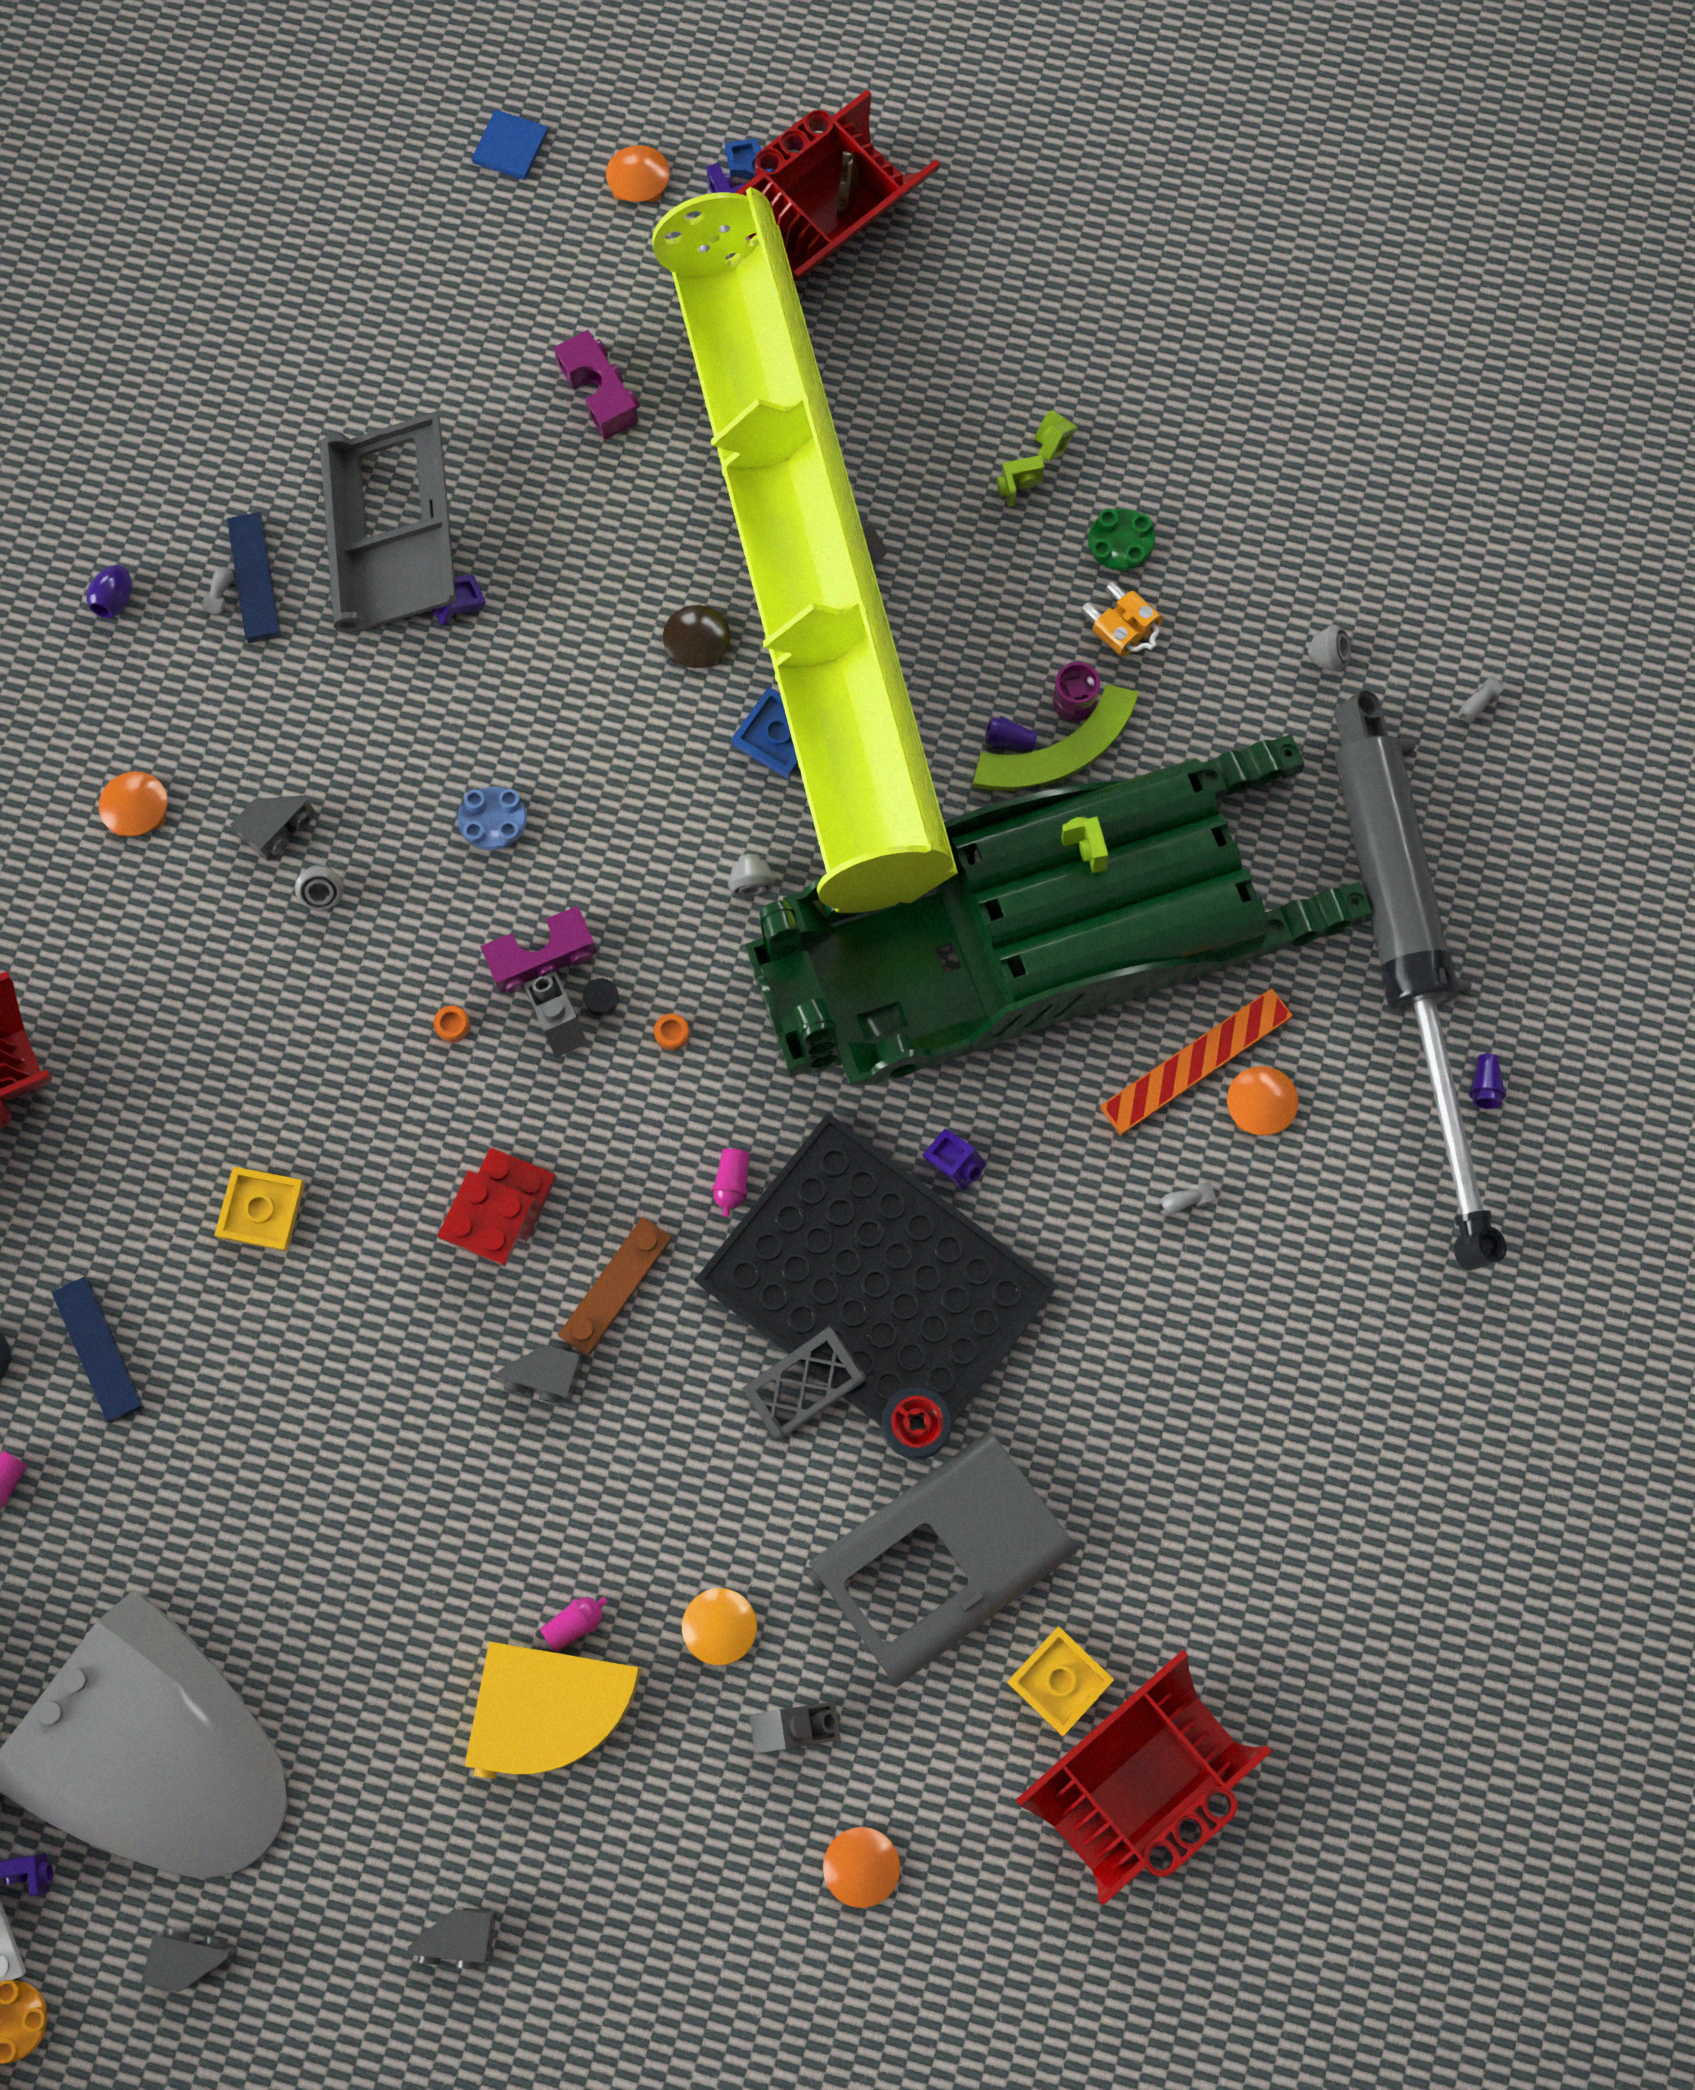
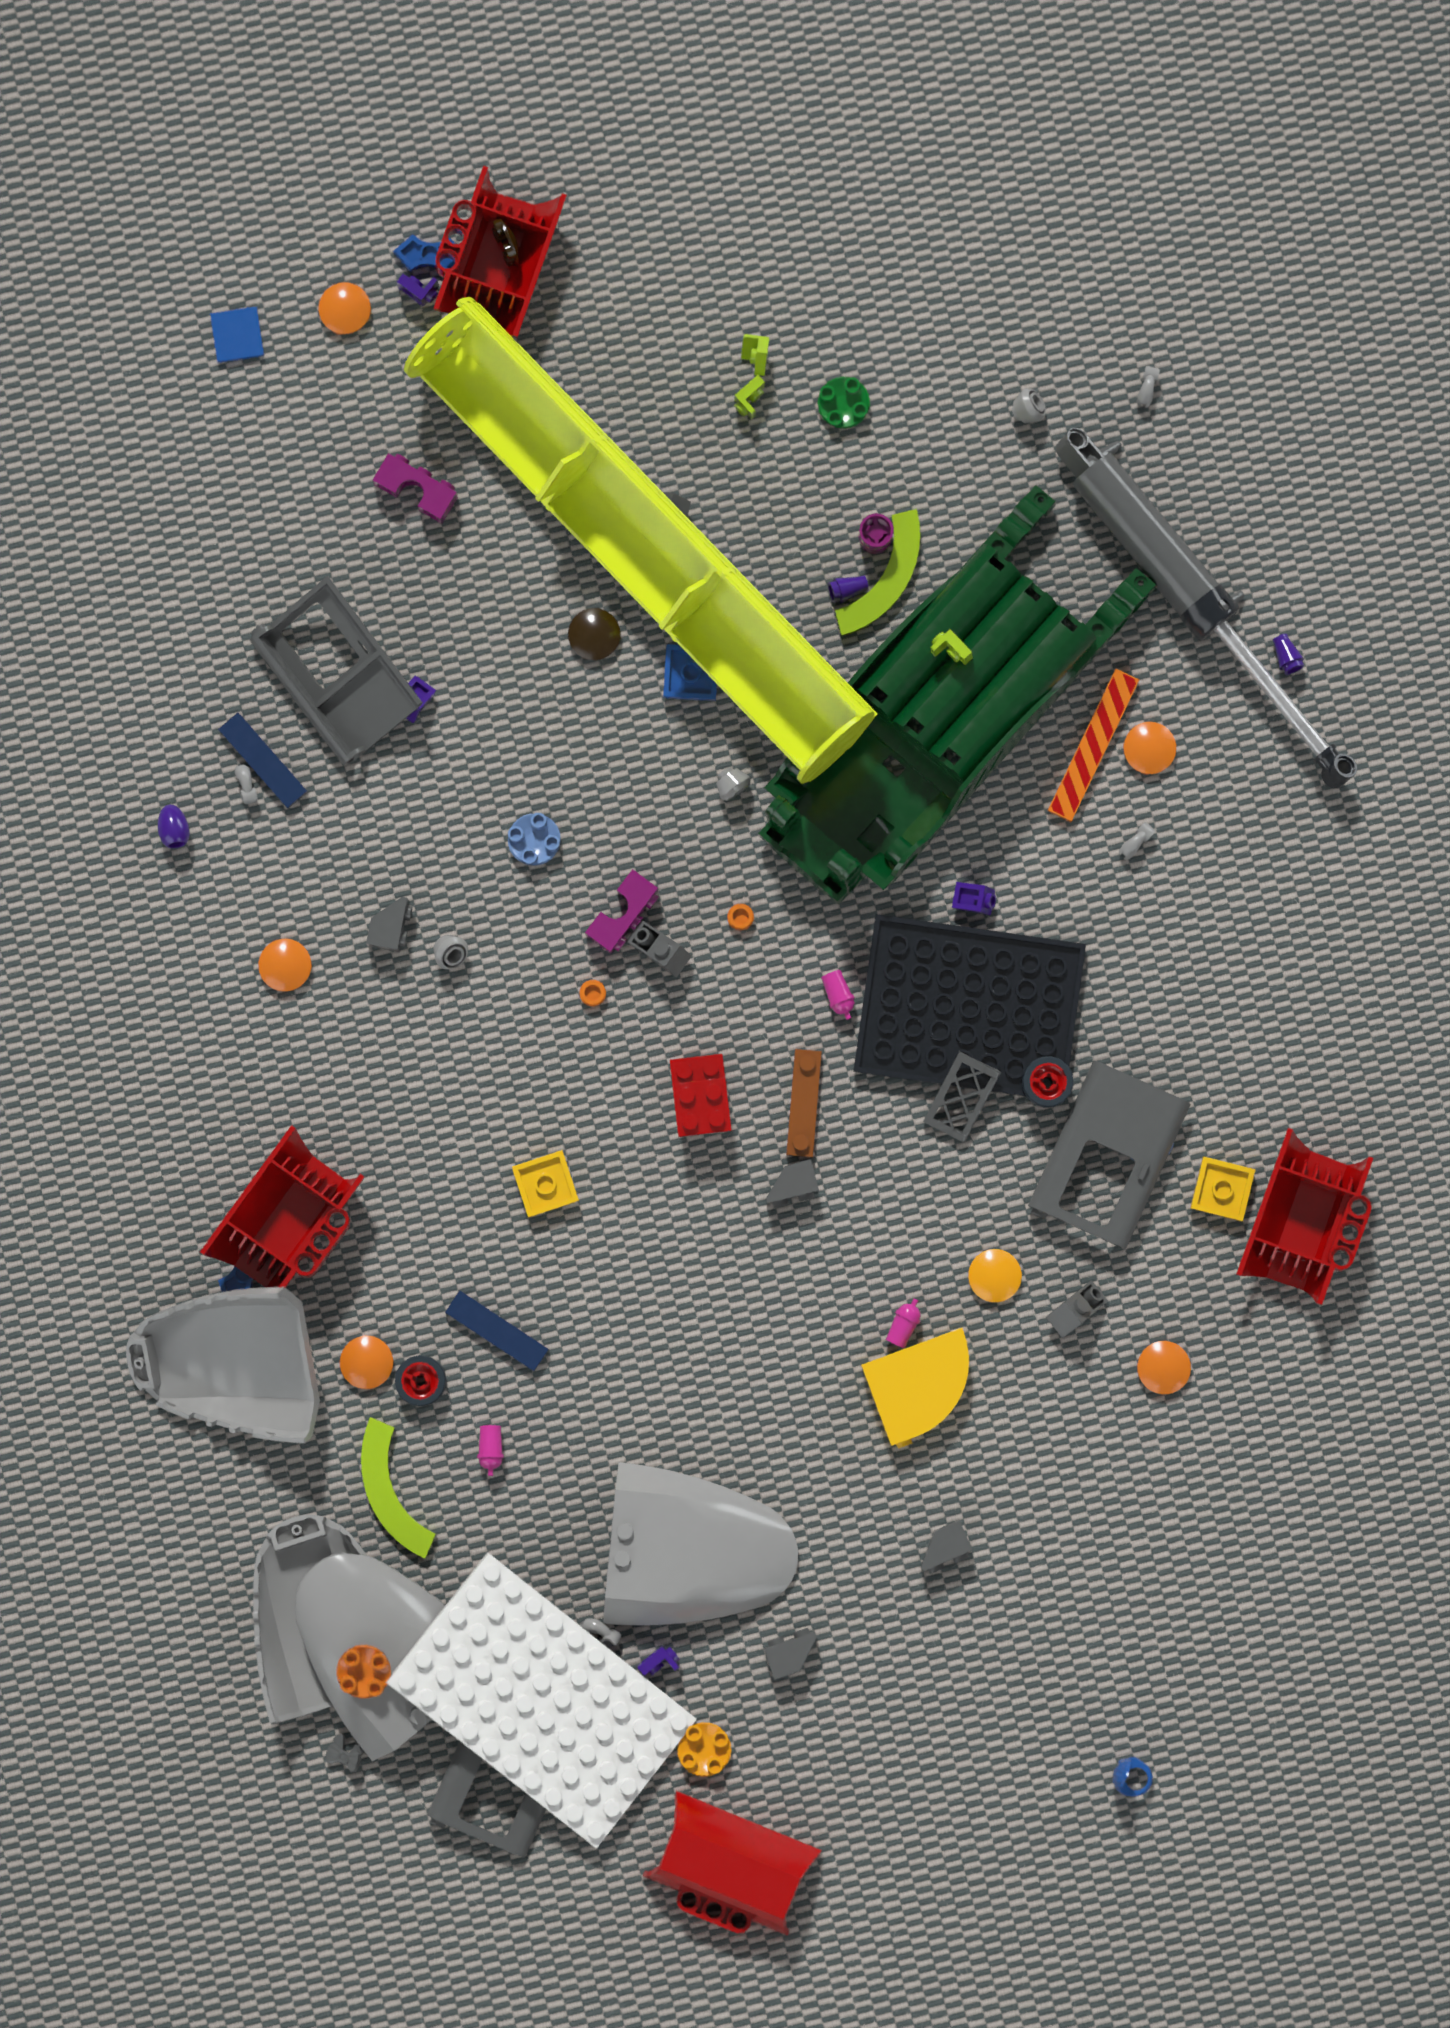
camera: 30 degrees left, 10 degrees up
(601, 996) = (680, 919): black tile -> none
(1126, 623) = (881, 462): light orange piece -> none

